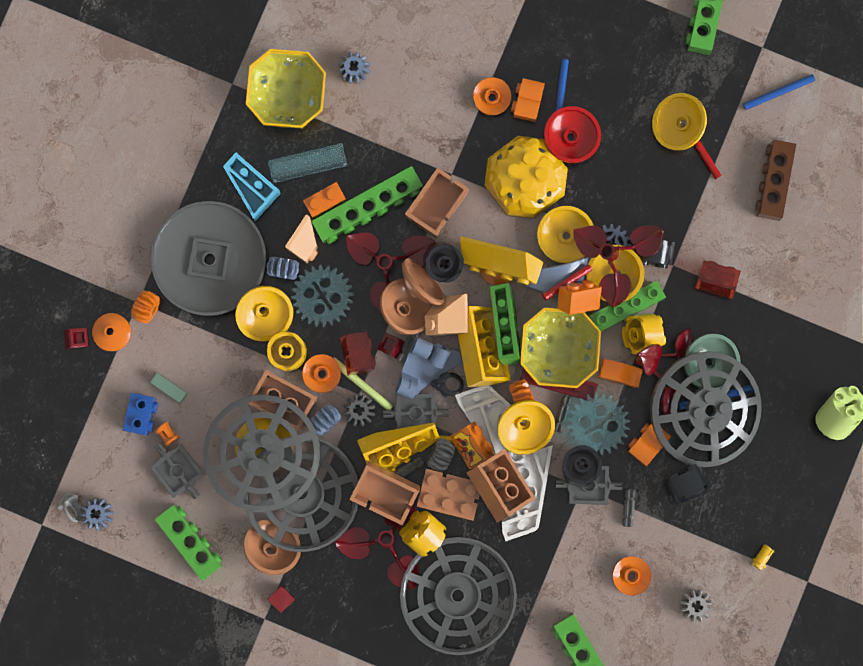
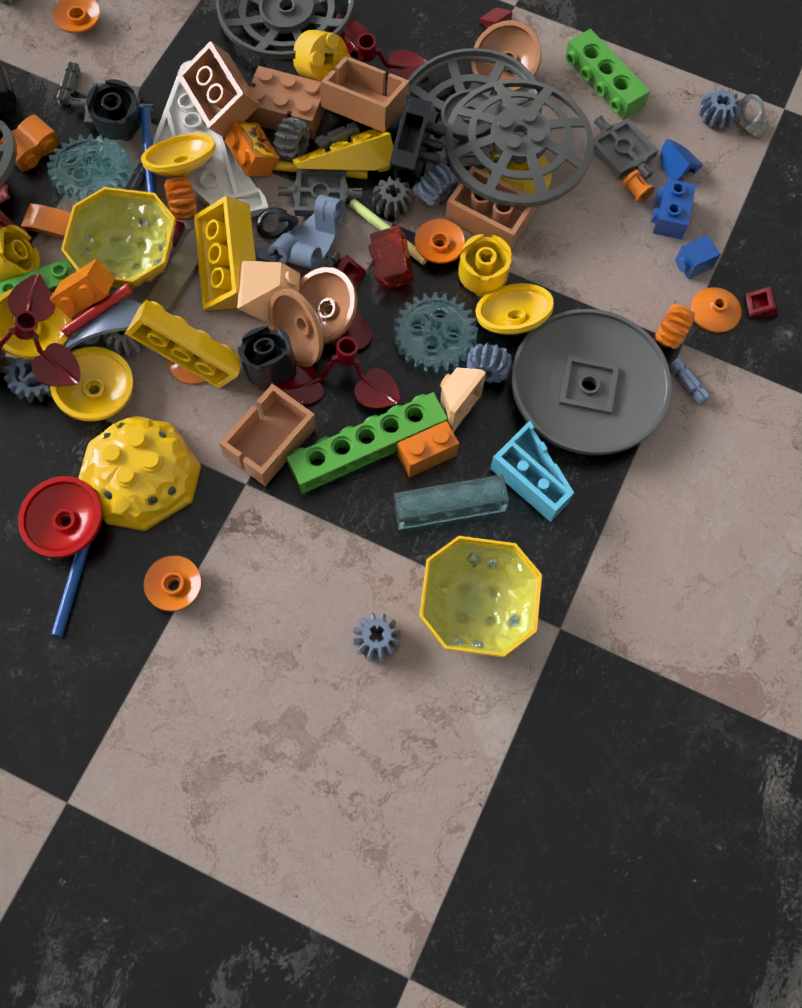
camera: 175 degrees right, 15 degrees down
(124, 371) = (697, 257): none -> blue brick
(133, 461) = (678, 160): none -> blue brick
(135, 269) = (689, 381): none -> sand blue axle
(169, 388) = (637, 238): sand green piece -> none
(341, 445) = (413, 139): none -> black piece
(506, 324) = (190, 272): bright green brick -> none
(528, 101) = (119, 575): orange brick -> none
(554, 443) = (147, 142): none -> blue bar

